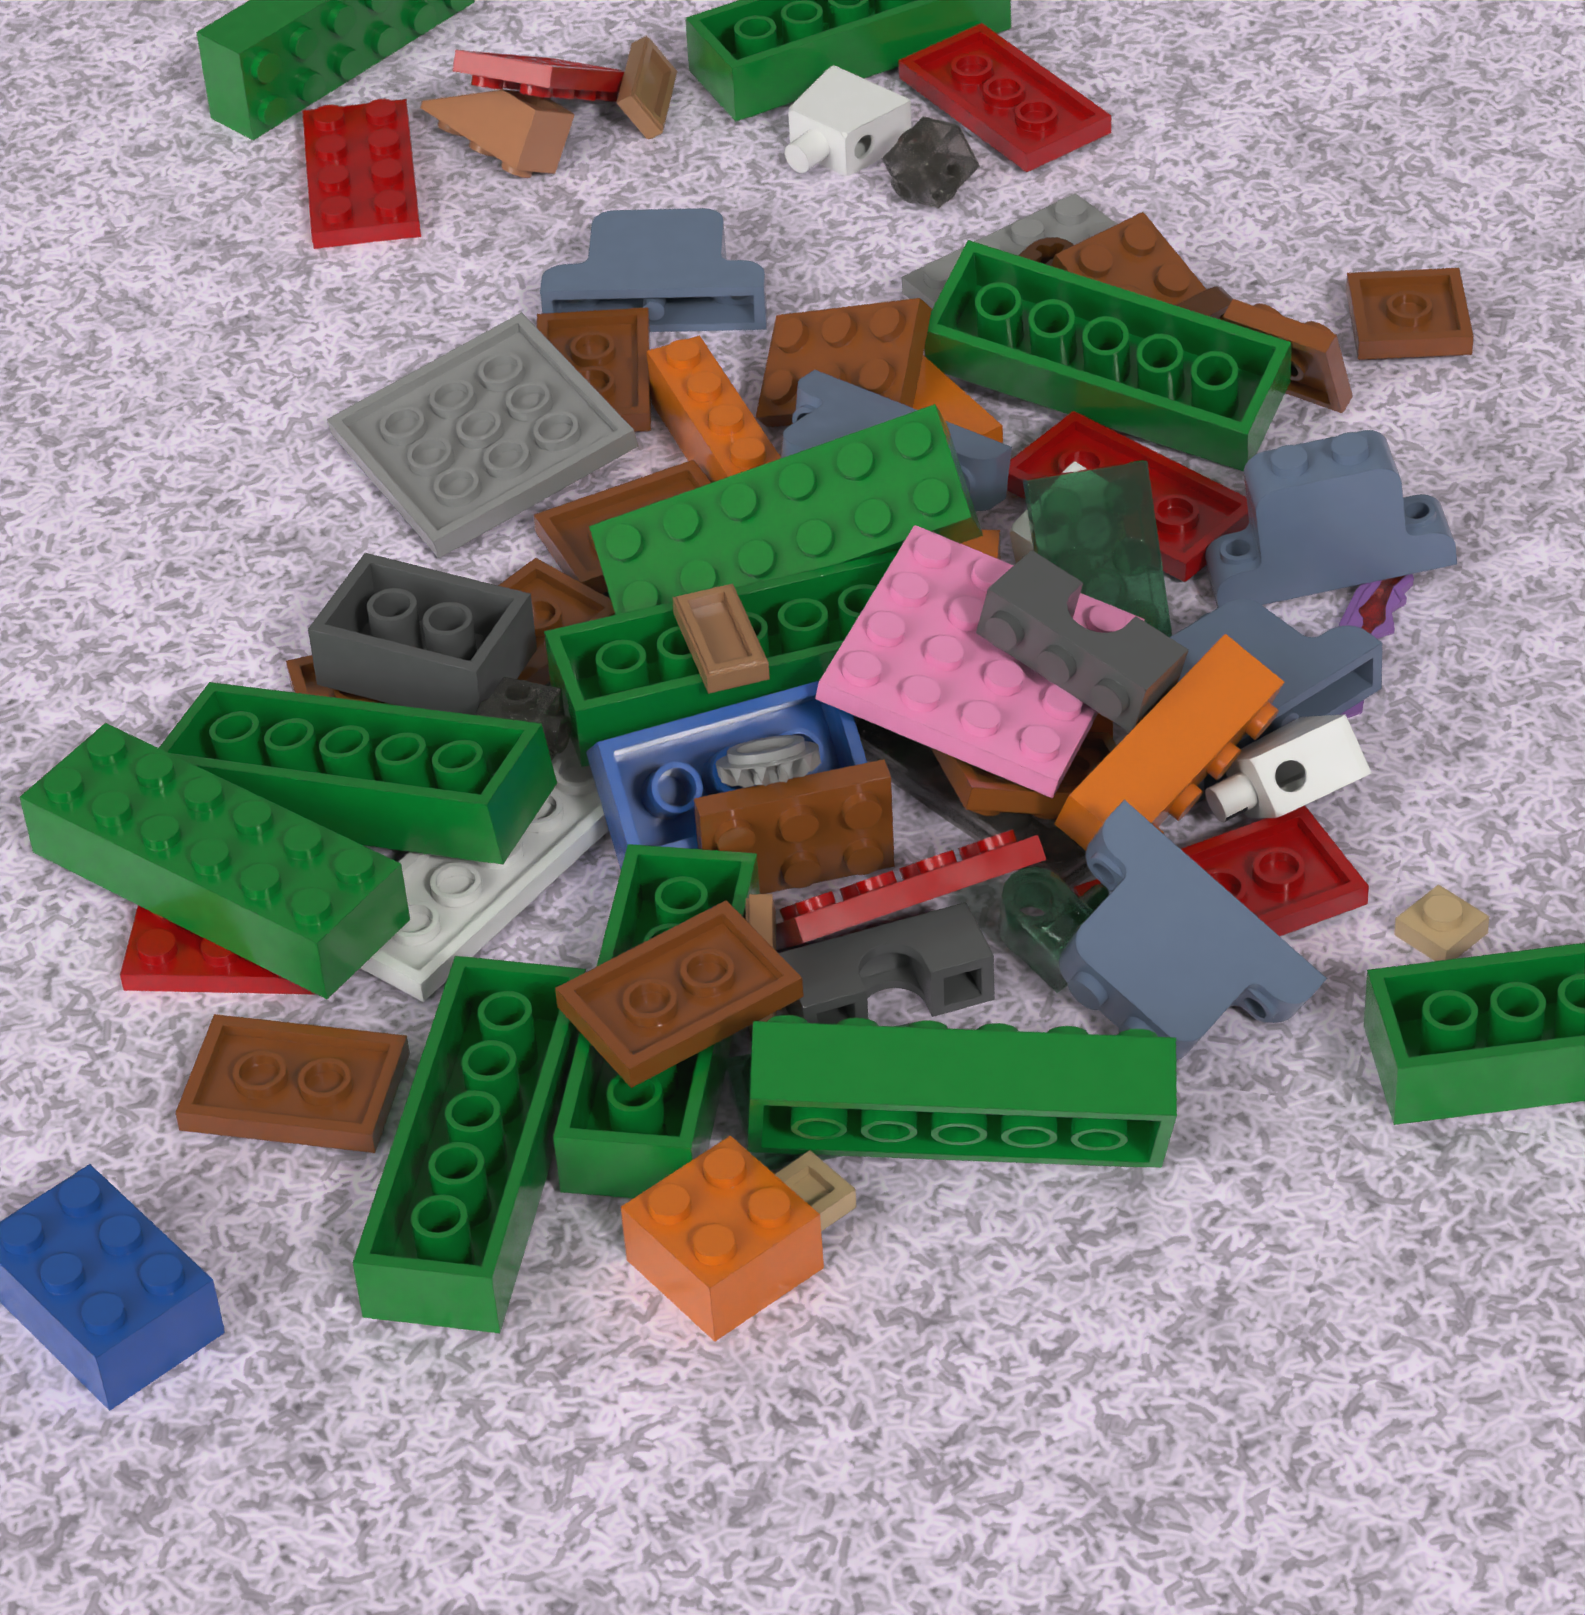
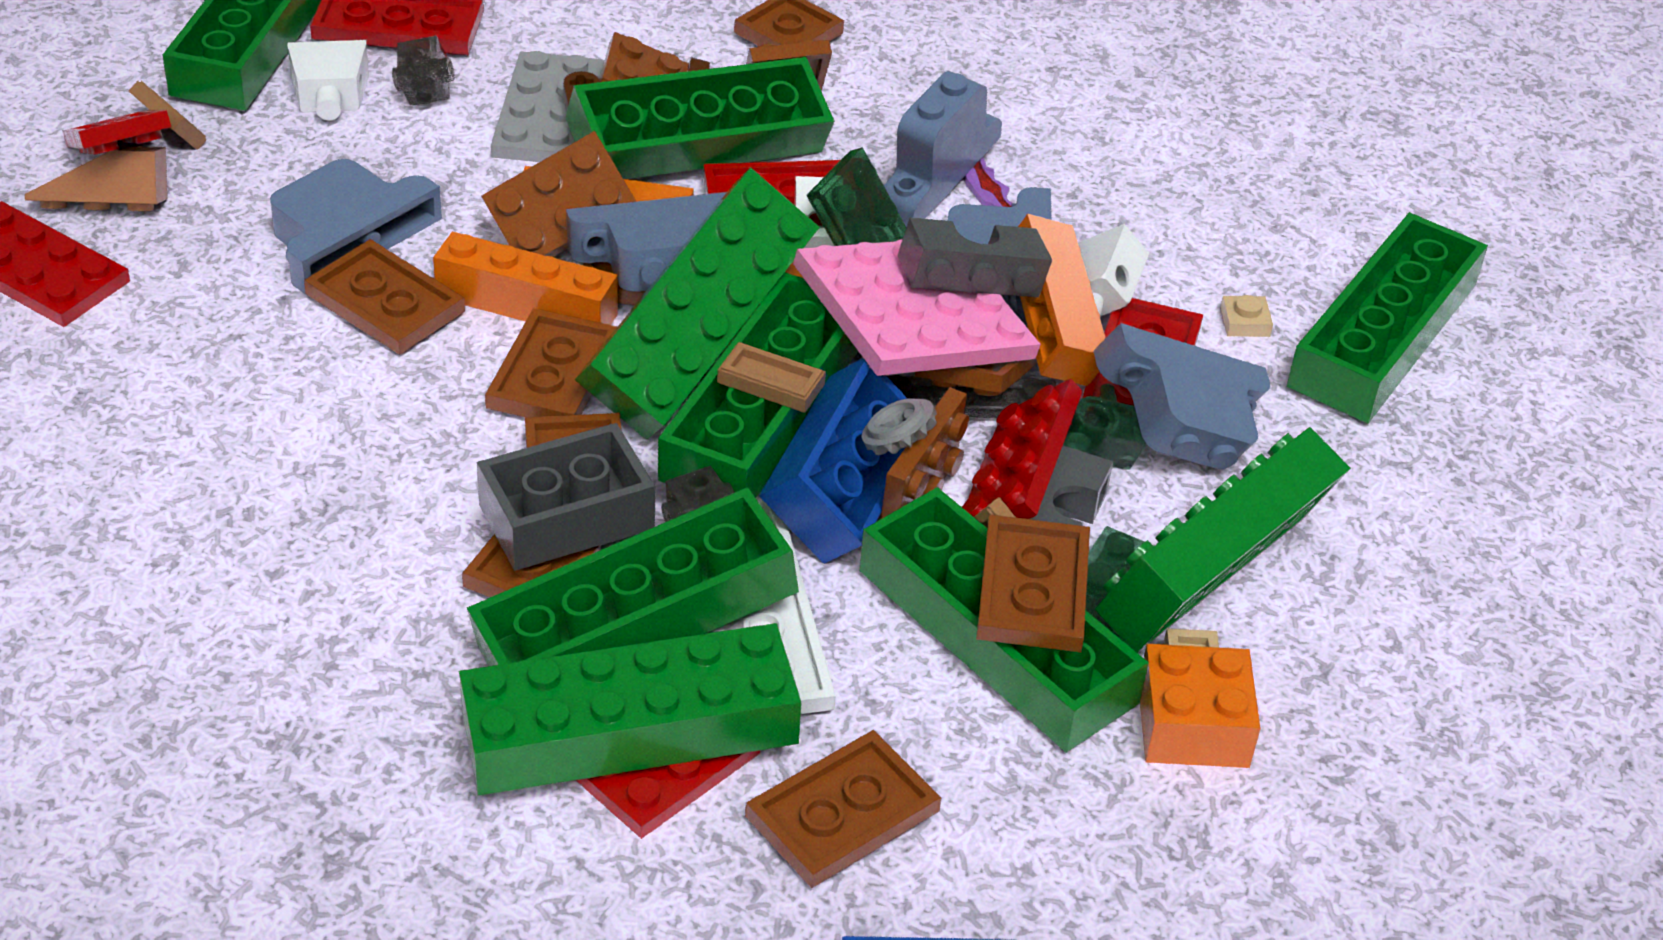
camera: 55 degrees left, 0 degrees up
(470, 1150) = (1013, 756): green brick -> none
(481, 434) = (379, 368): light grey plate -> none

